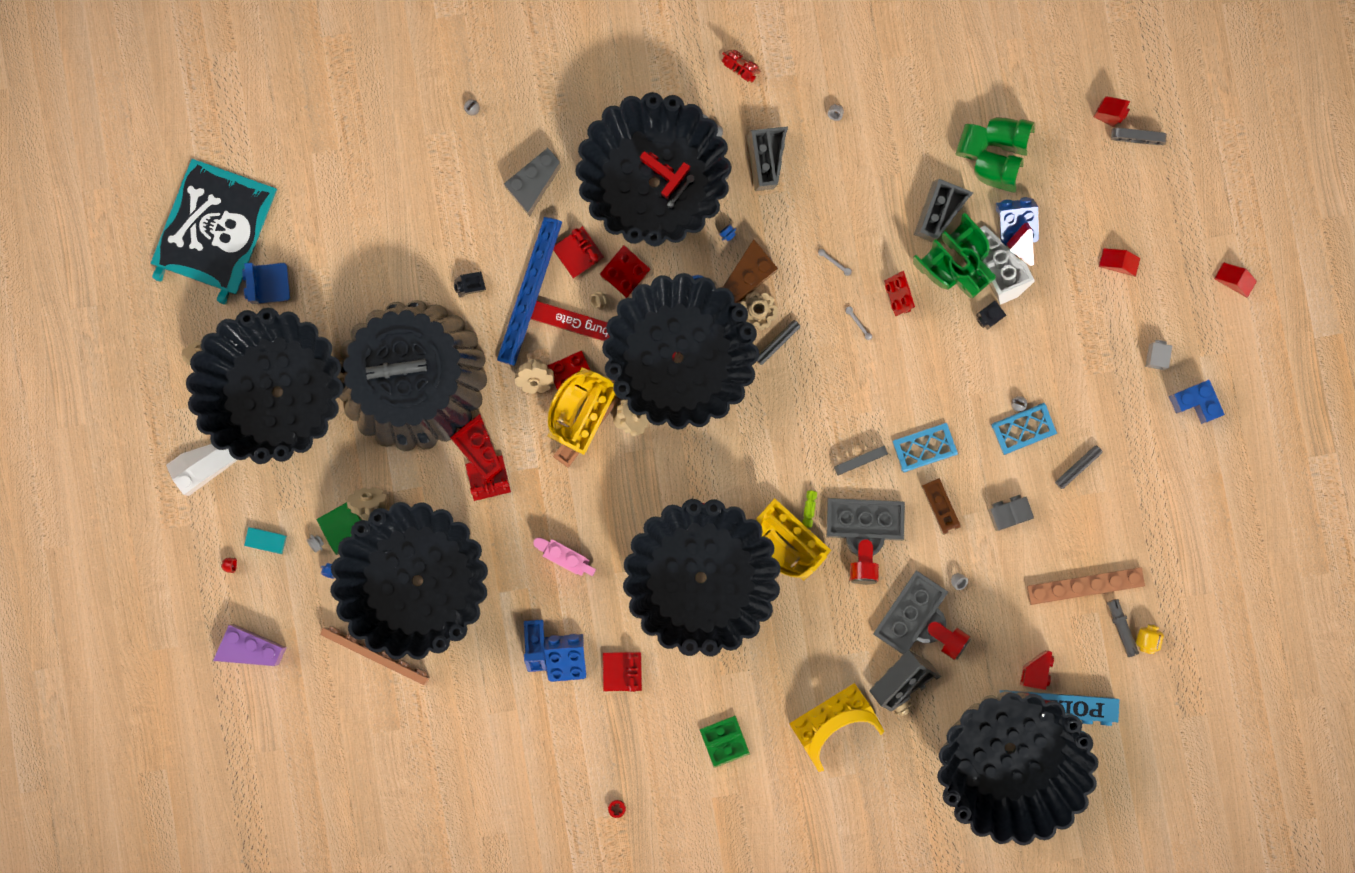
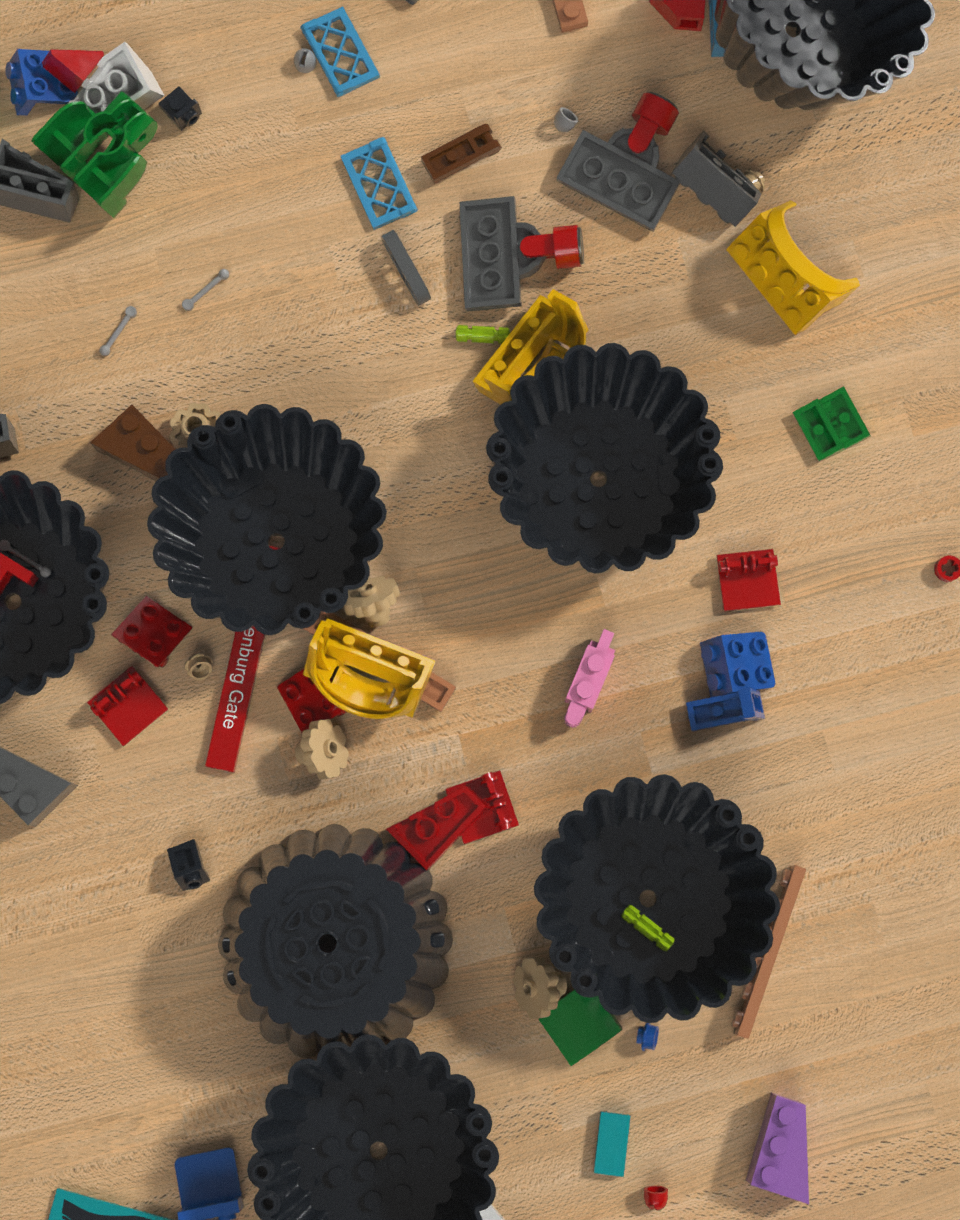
camera: 95 degrees left, 5 degrees down
(315, 543) = (608, 1063): light grey plate -> none
(387, 370) = (329, 950): dark grey pin -> none
(397, 577) = (647, 928): none -> lime axle
(529, 291) = (192, 772): blue tile -> none
(727, 233) = (84, 486): blue plate -> none
(778, 341) = (231, 391): dark grey axle -> none
(899, 293) = (157, 230): red hinge -> none
(1010, 513) = (462, 57): dark grey brick -> none

